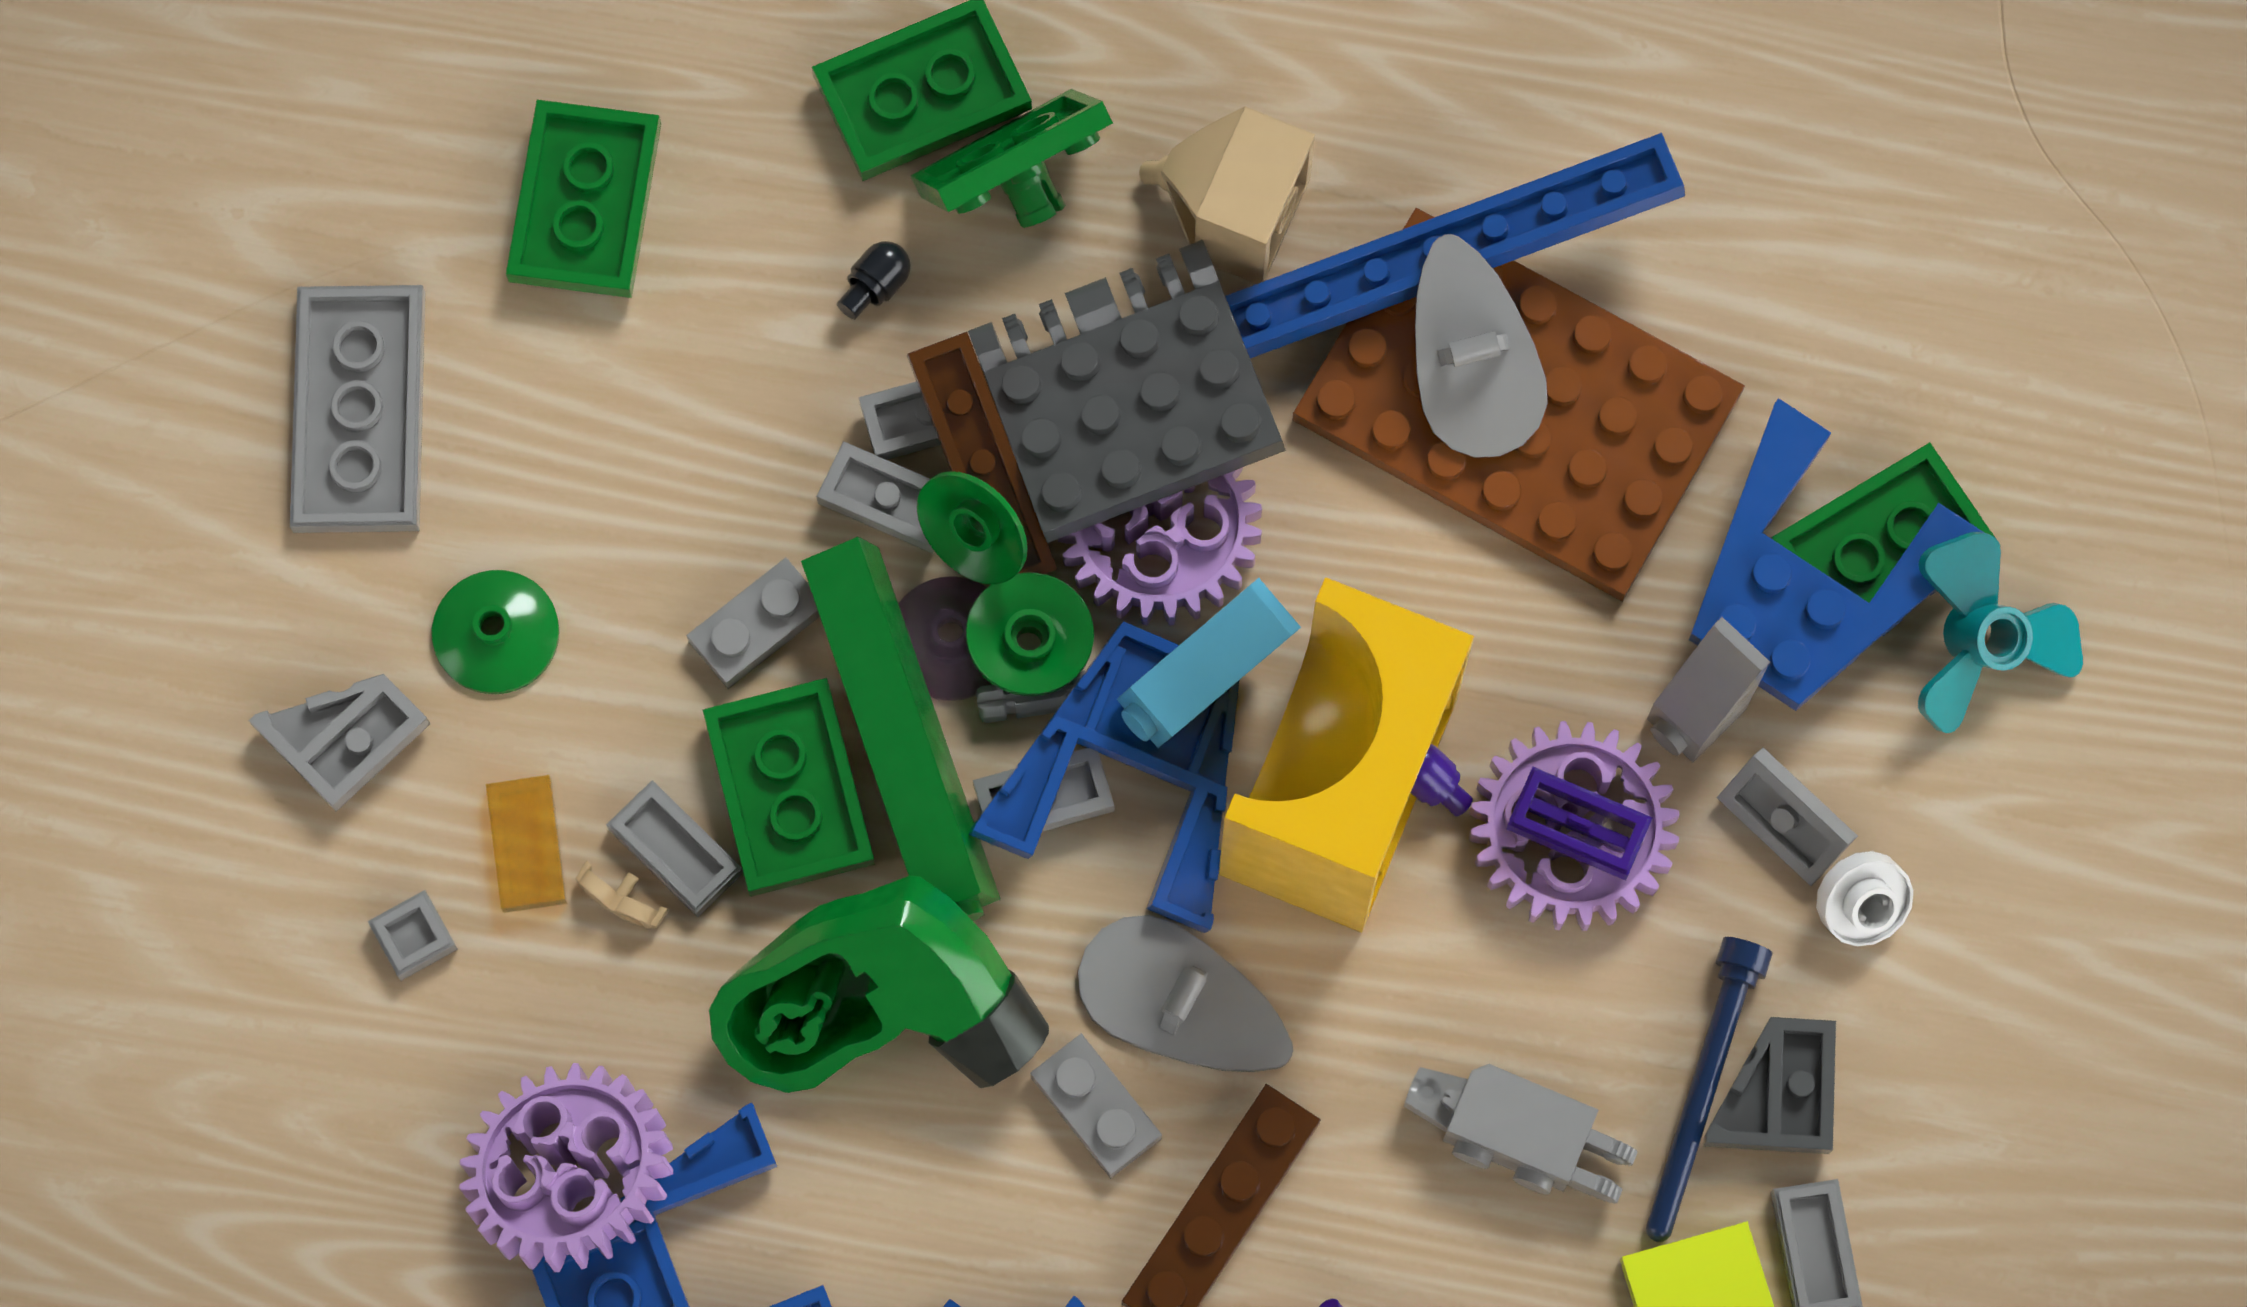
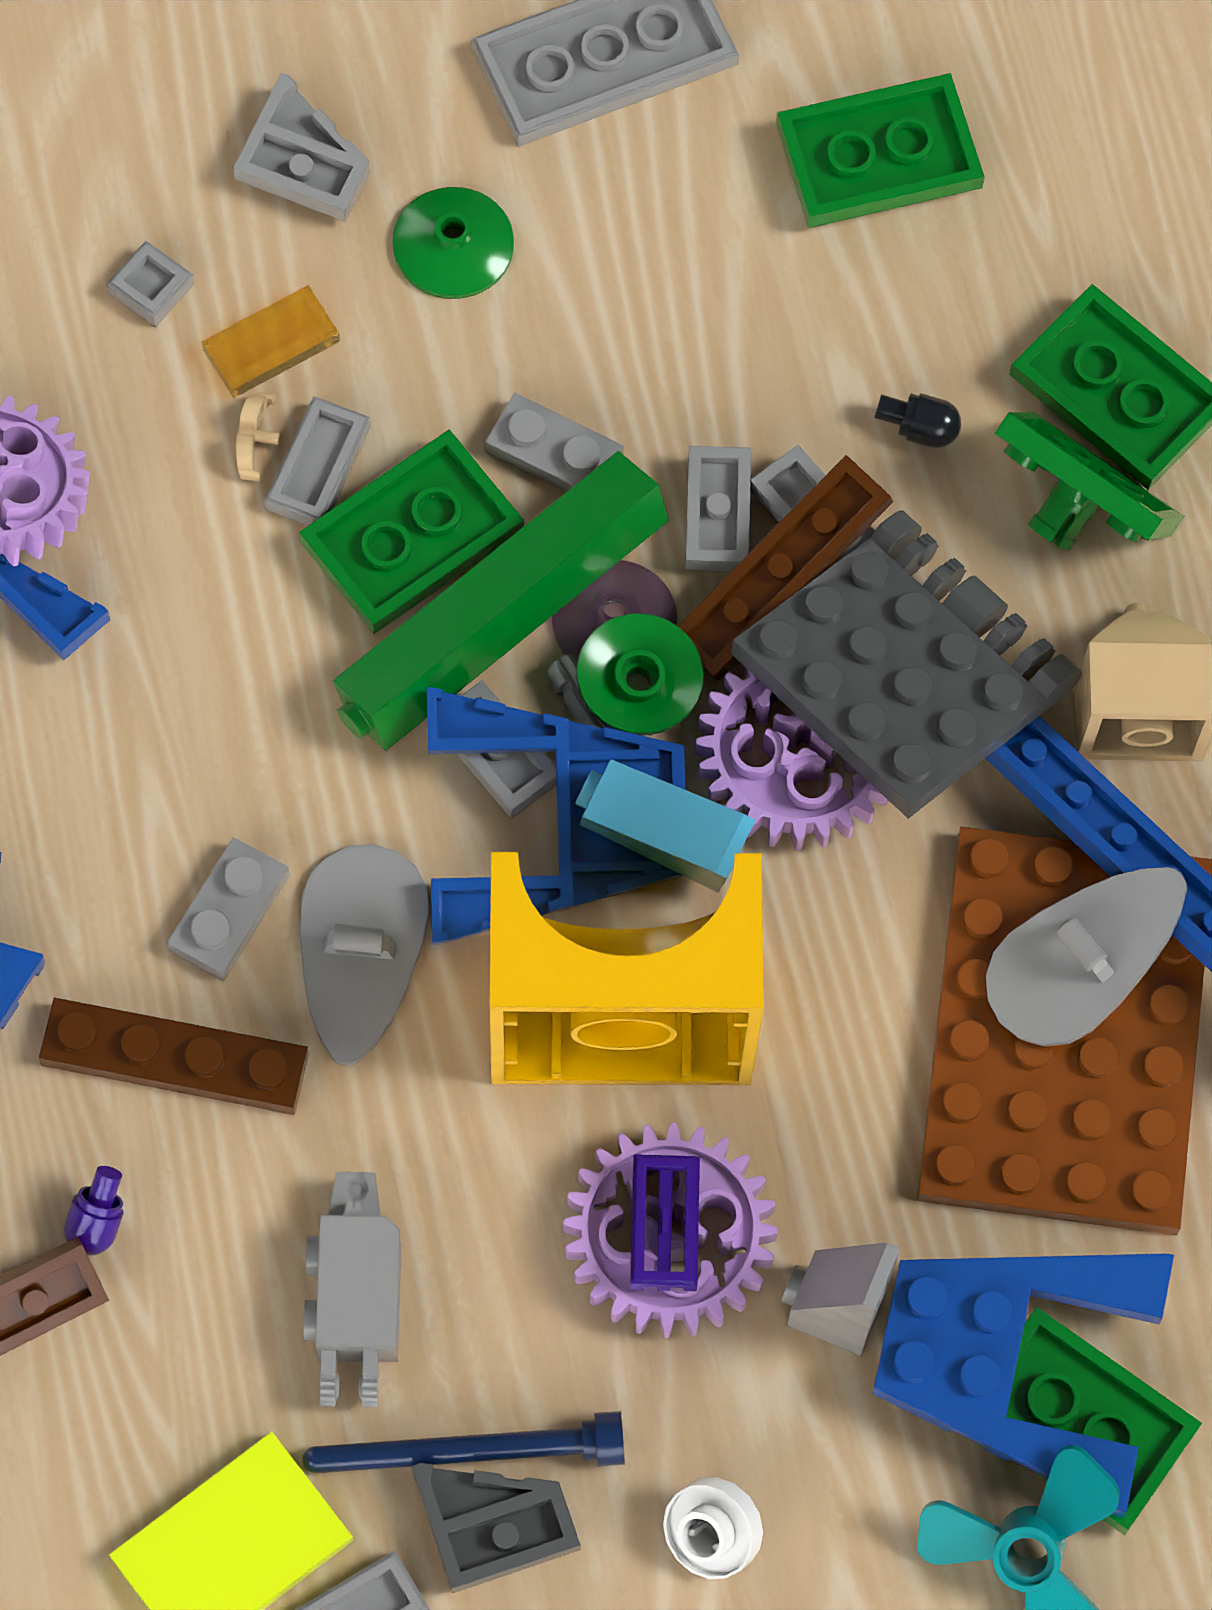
camera: 65 degrees right, 5 degrees down
(862, 976) = (258, 652): green piece -> none
(972, 527) = (710, 576): green dish -> none
(1439, 783) = (660, 1082): dark purple cylinder -> none
(1787, 816) = (765, 1424): light grey plate -> none

